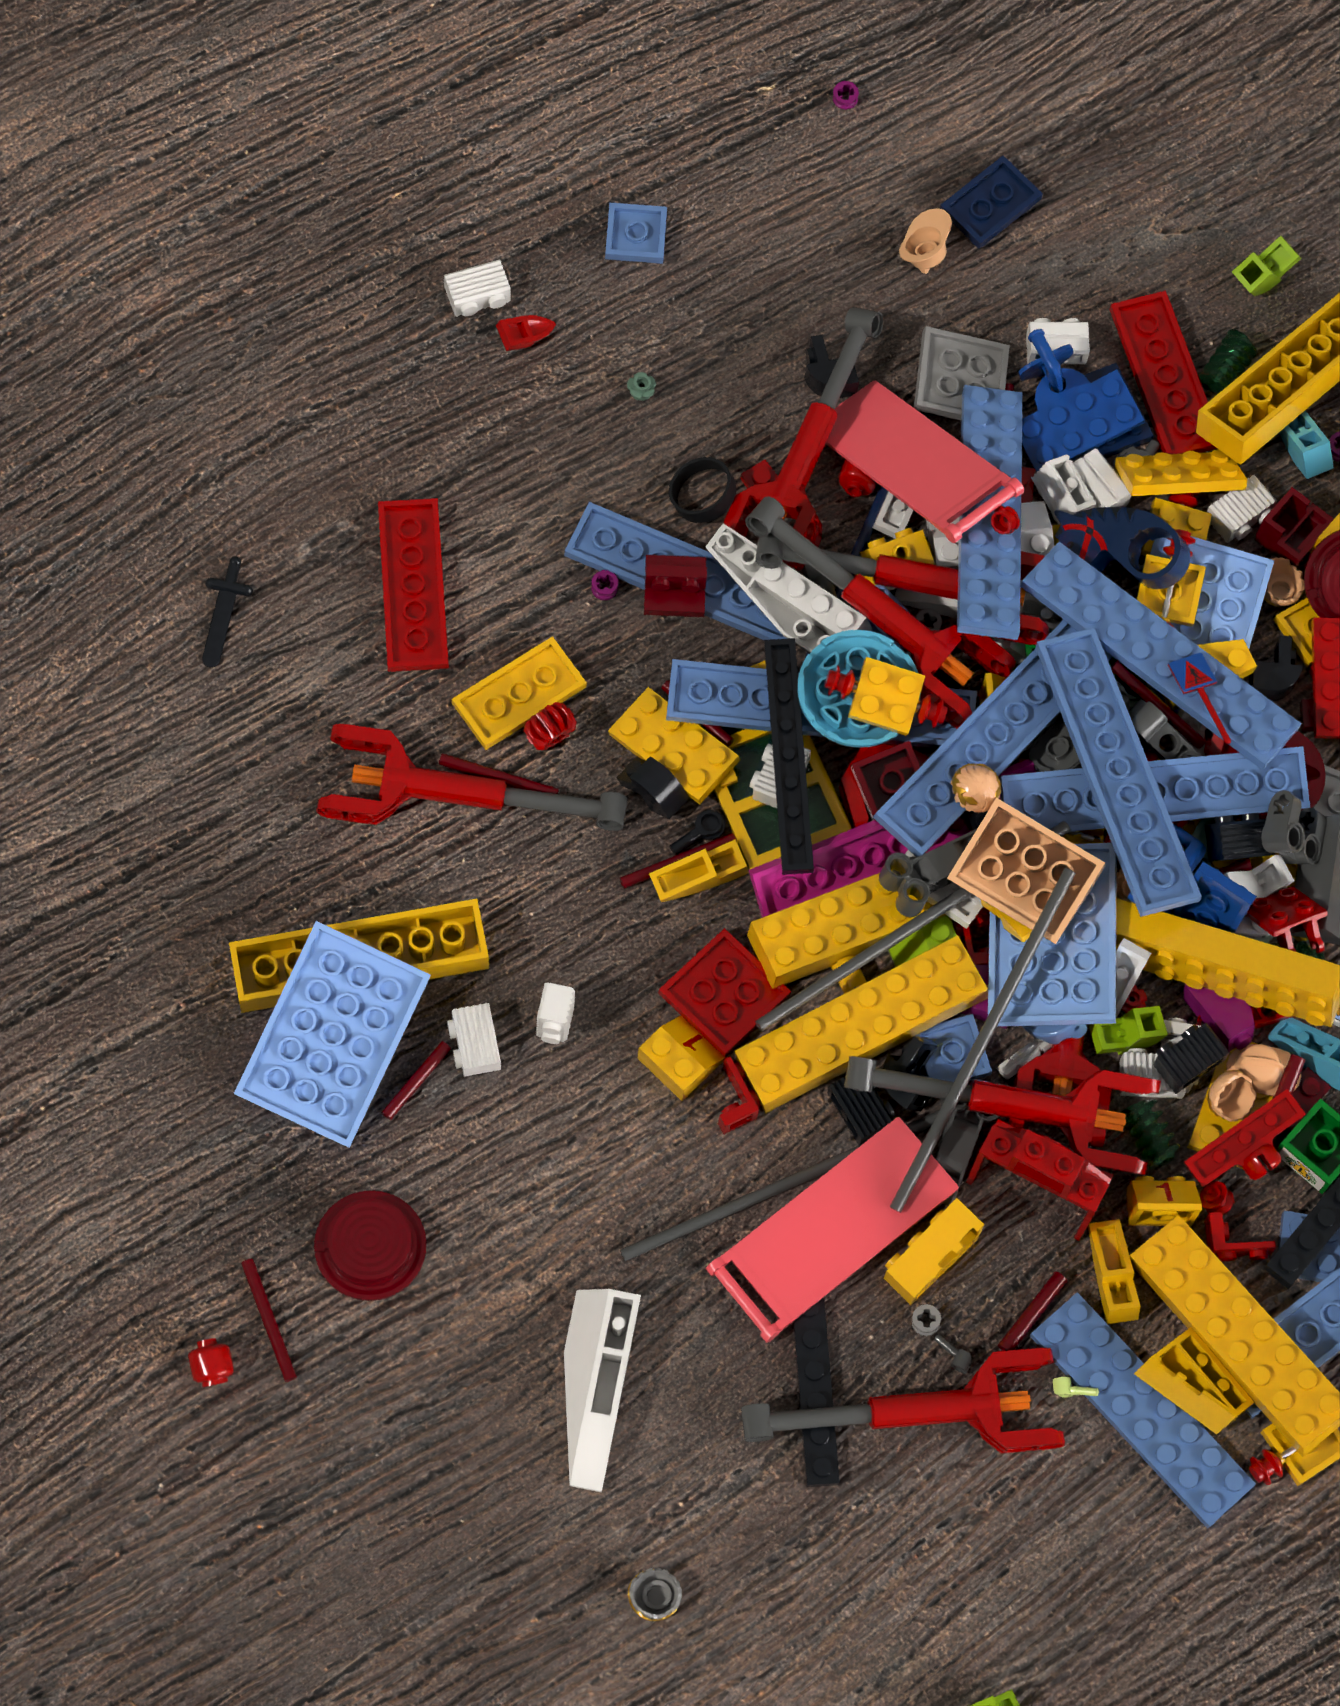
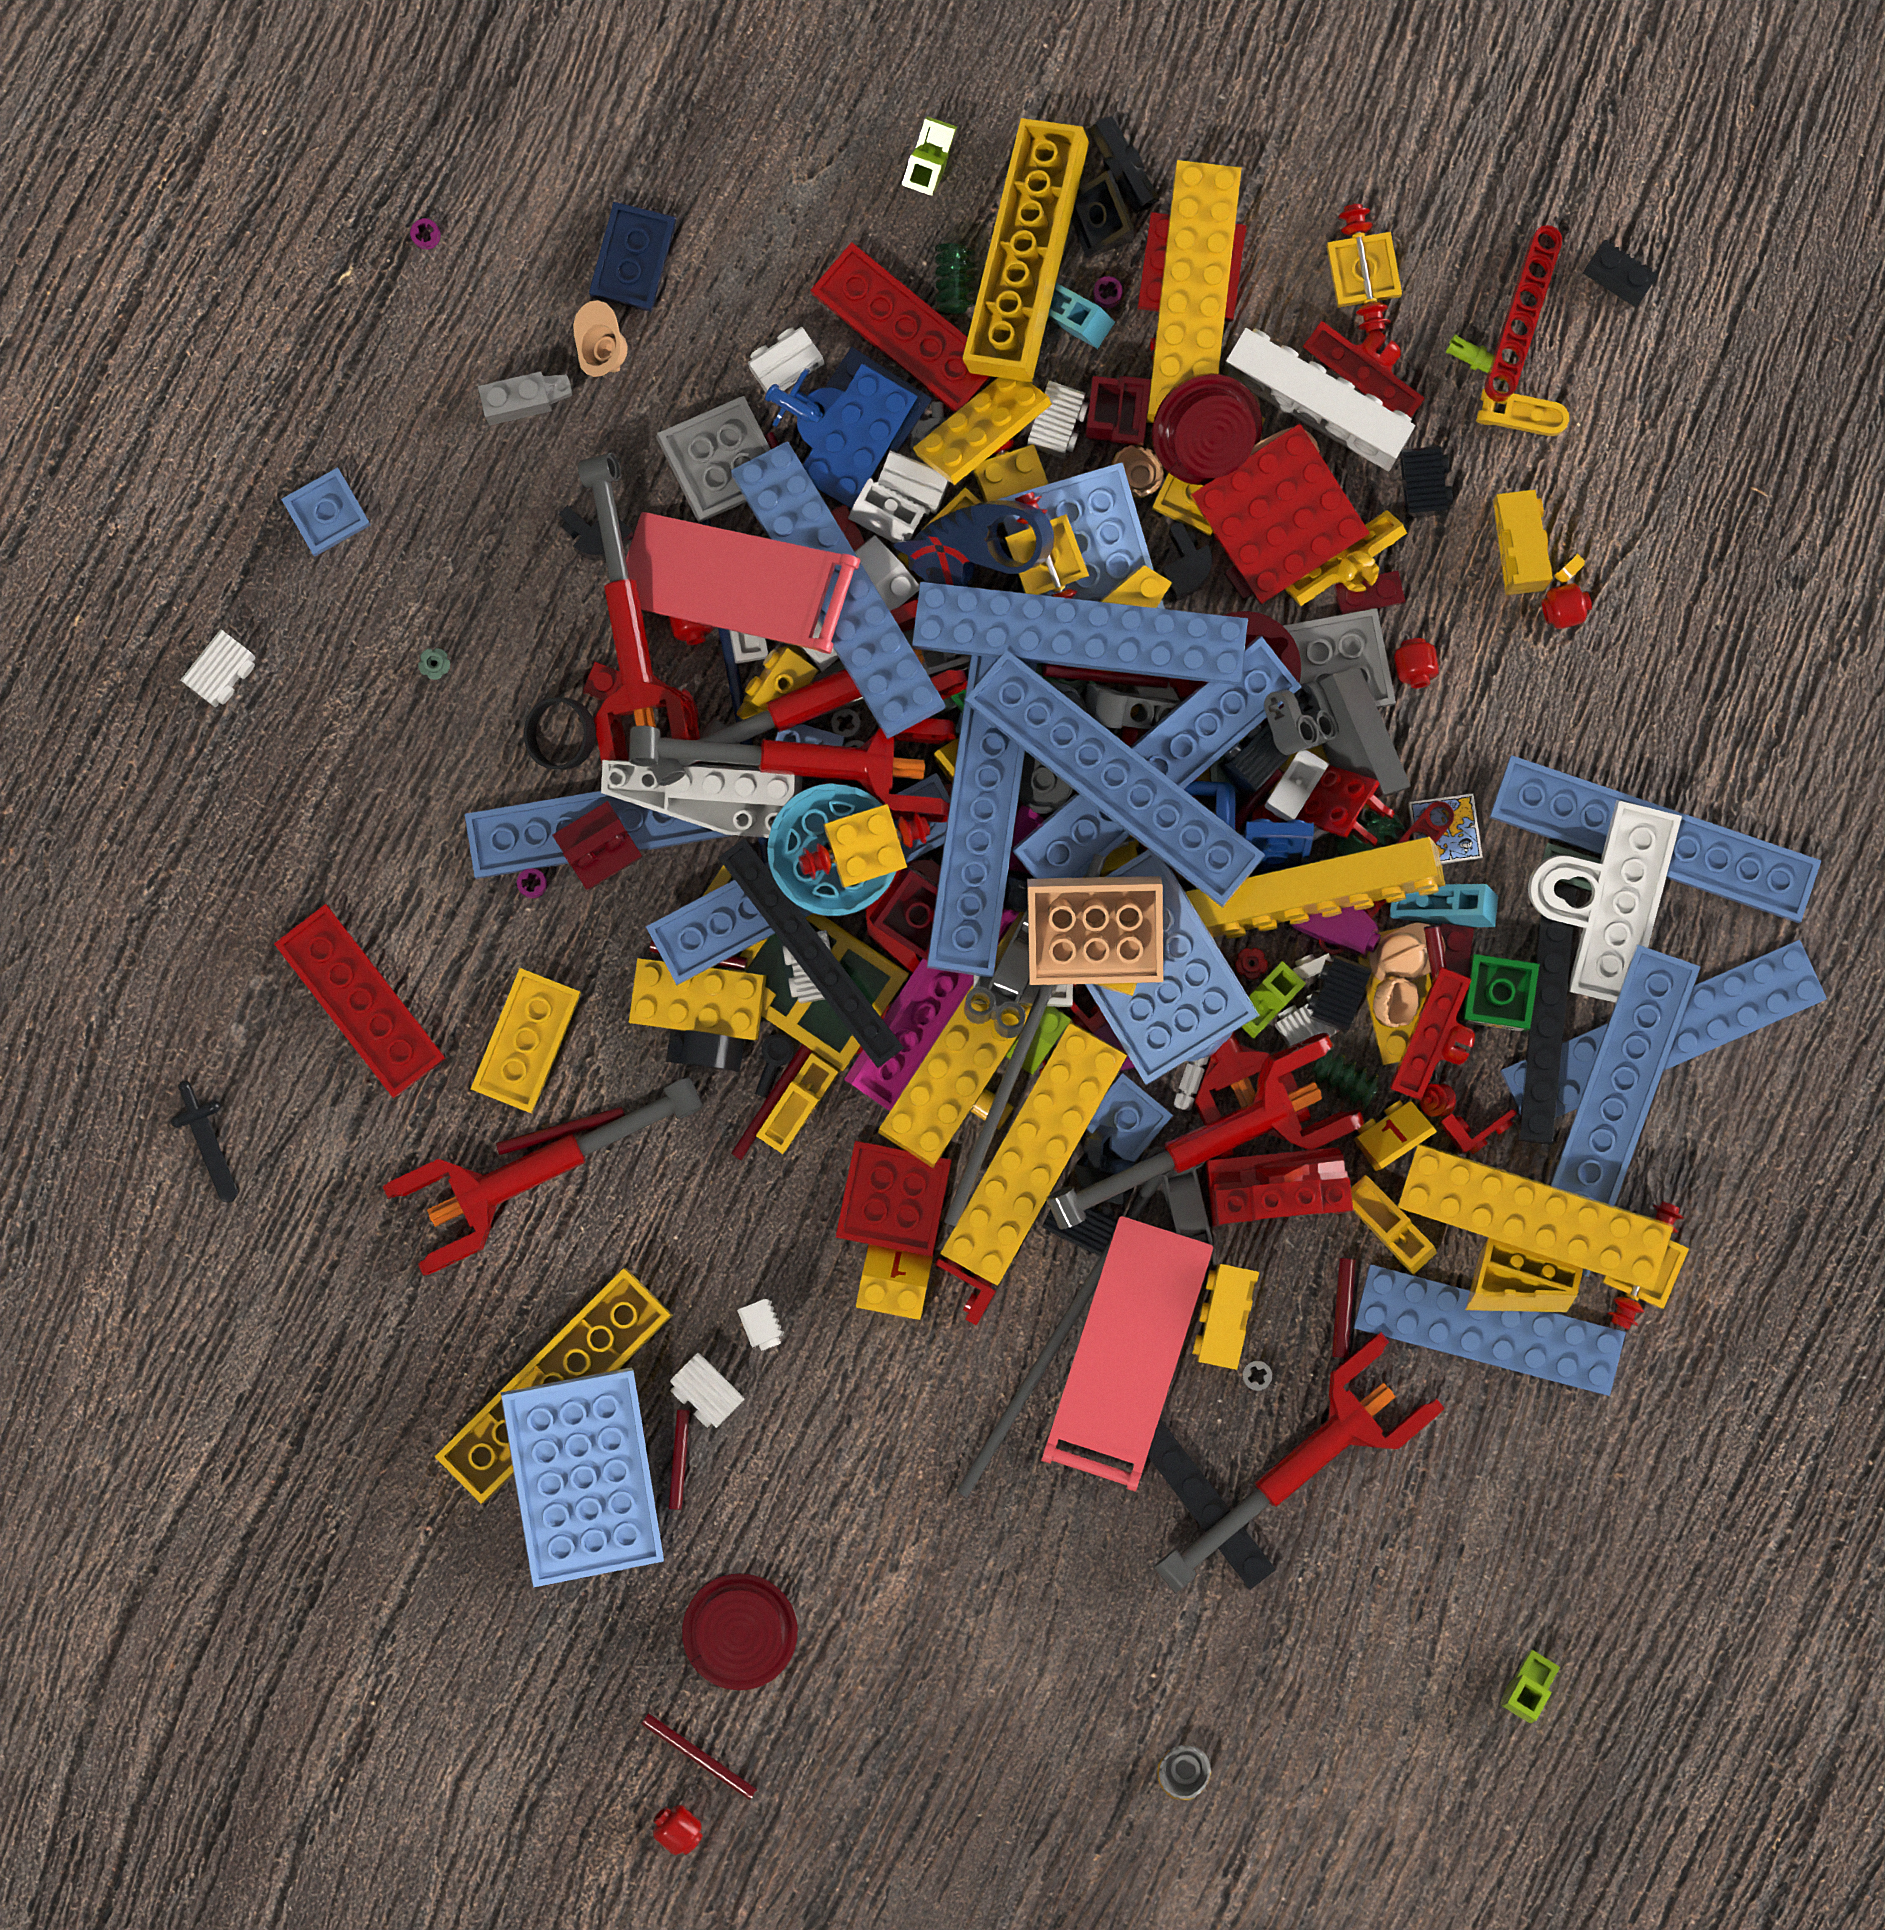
camera: 25 degrees left, 15 degrees up
(523, 331) = (290, 681): red plate -> none
(550, 726) = (576, 1057): red gear -> none
(594, 1378) = (1010, 1621): white wedge -> none
(840, 243) = (522, 396): none -> light grey hinge
(962, 1358) = (1310, 1391): dark grey hand -> none
(975, 787) = (1000, 879): light nougat hair -> none
(982, 1040) = (1154, 1107): dark grey piece -> none
(1005, 520) = (860, 598): red plate -> none
(1063, 1387) = (1411, 1357): yellowish green hand -> none
(1129, 965) = (1236, 949): white plate -> none
(1194, 674) = (1124, 638): piece -> none

